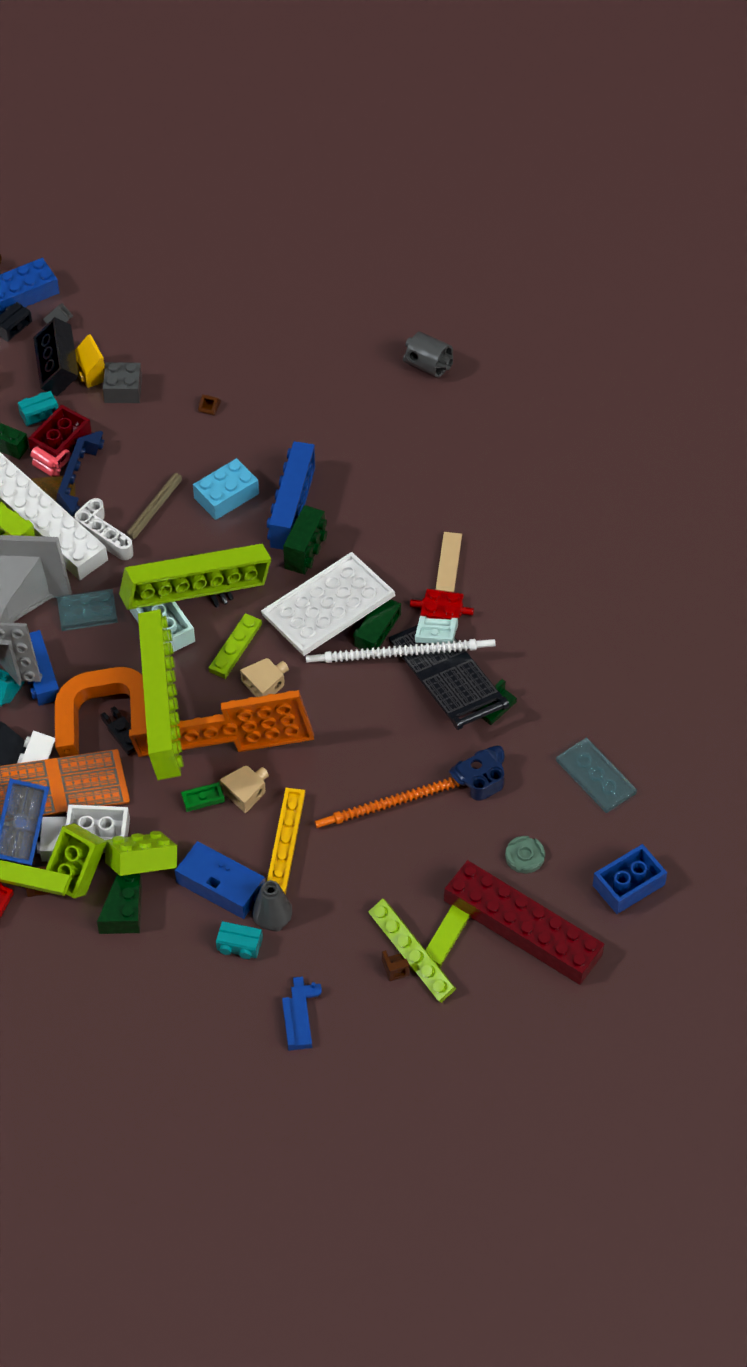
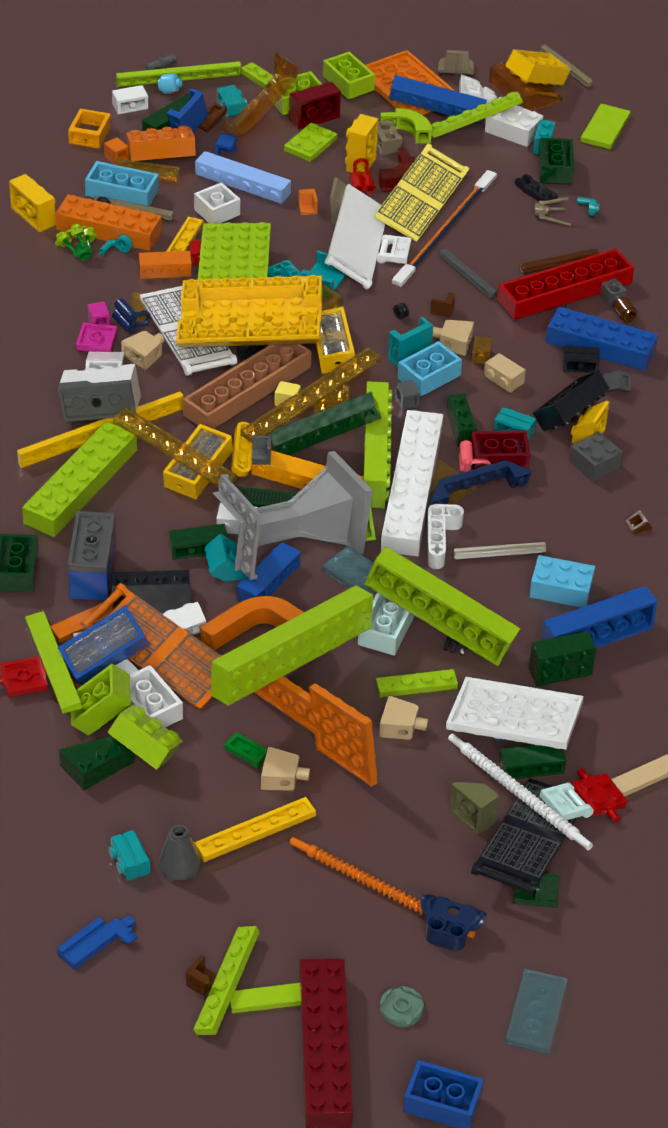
camera: 50 degrees right, 10 degrees down
(219, 879) = (174, 802): blue brick -> none
(392, 687) = (474, 805): none -> olive slope

